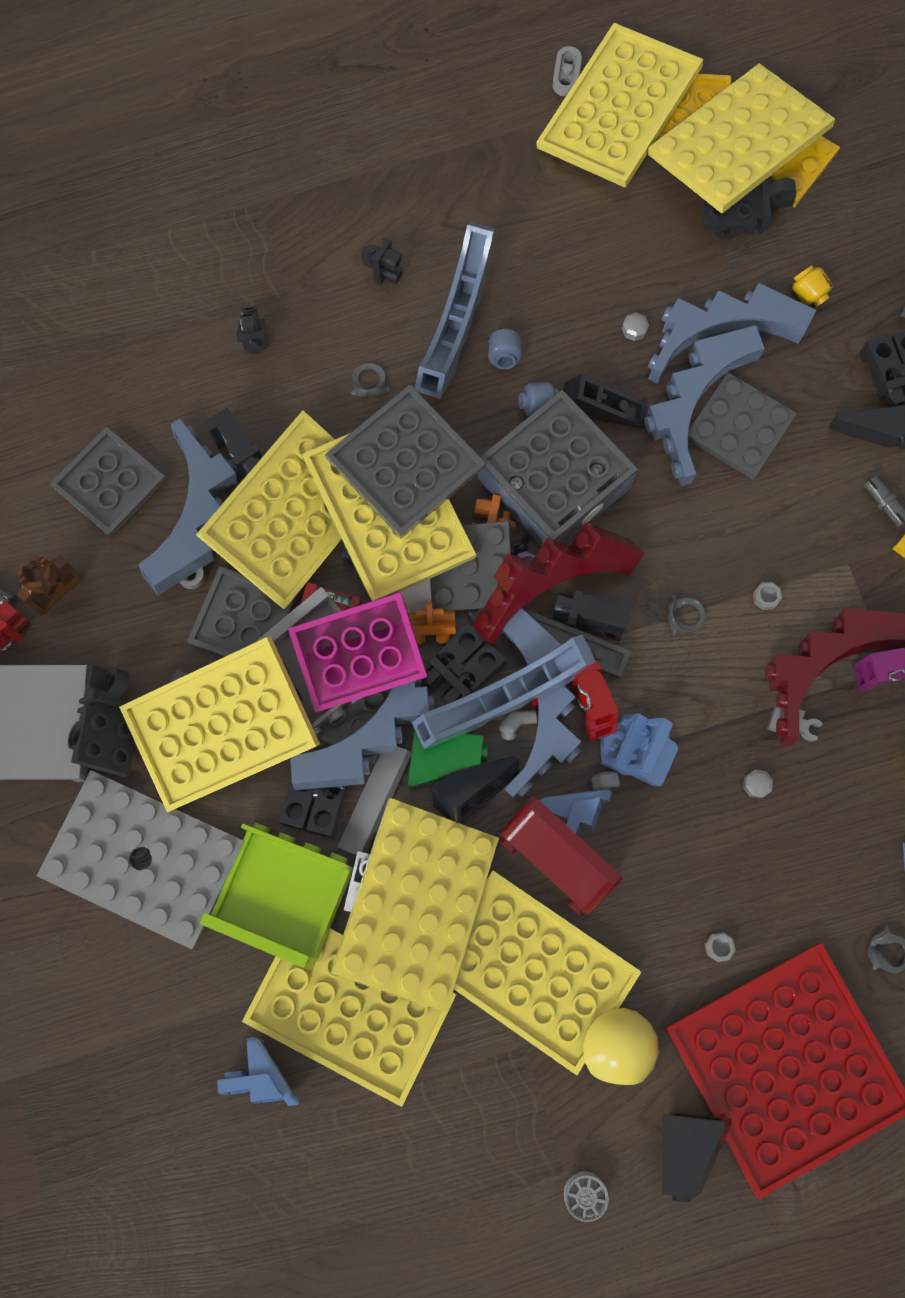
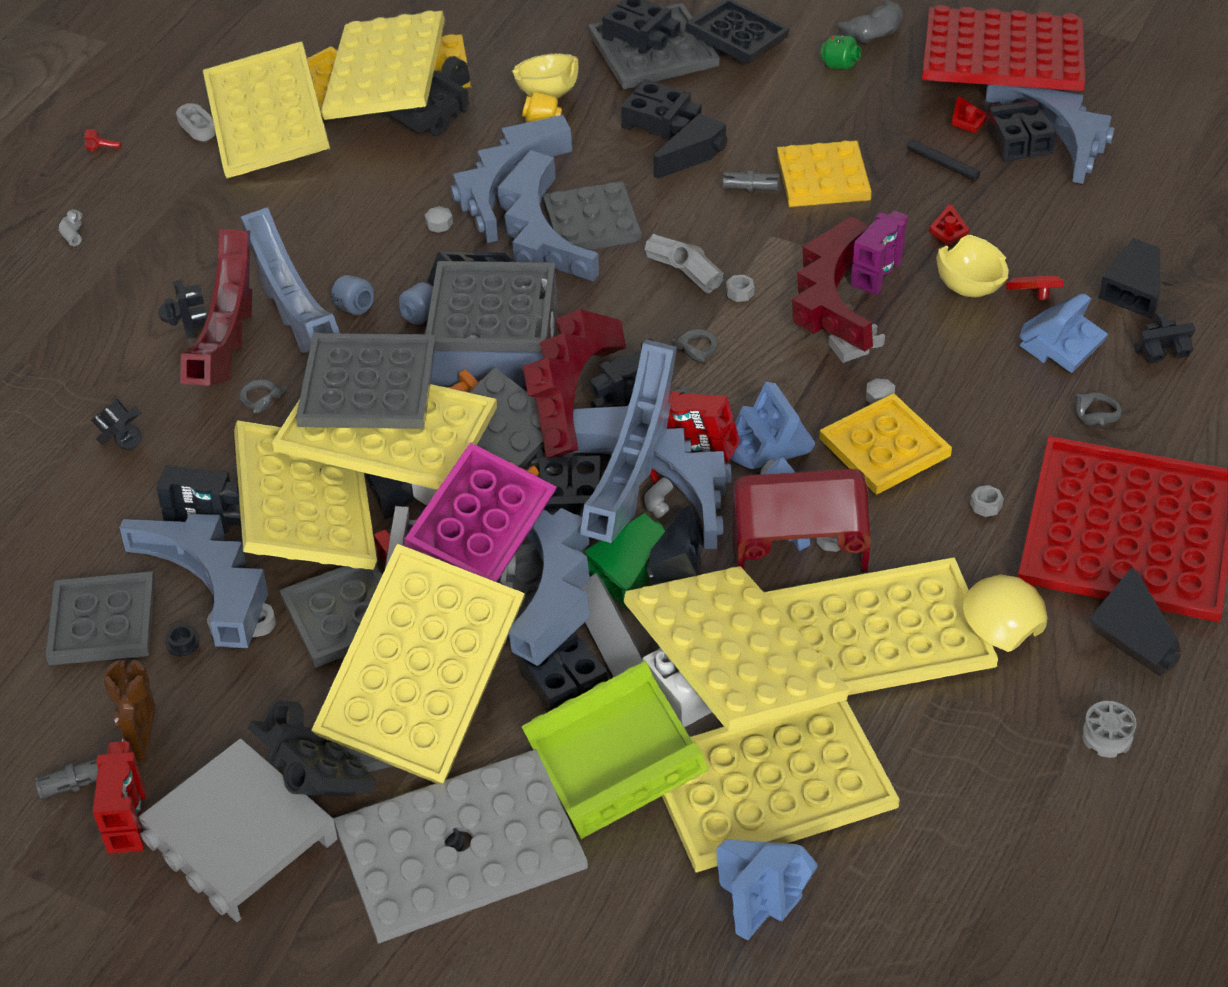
camera: 45 degrees left, 30 degrees down
(136, 546) = (182, 640): none -> black plate
(387, 307) = (210, 356): none -> dark red arch
(393, 103) = (70, 225): none -> light grey arm
(483, 28) = (93, 141): none -> red hand
(709, 831) = (885, 443): none -> yellow plate
(755, 533) = (696, 266): none -> light grey piece
(851, 253) = (547, 74): none -> light yellow cylinder

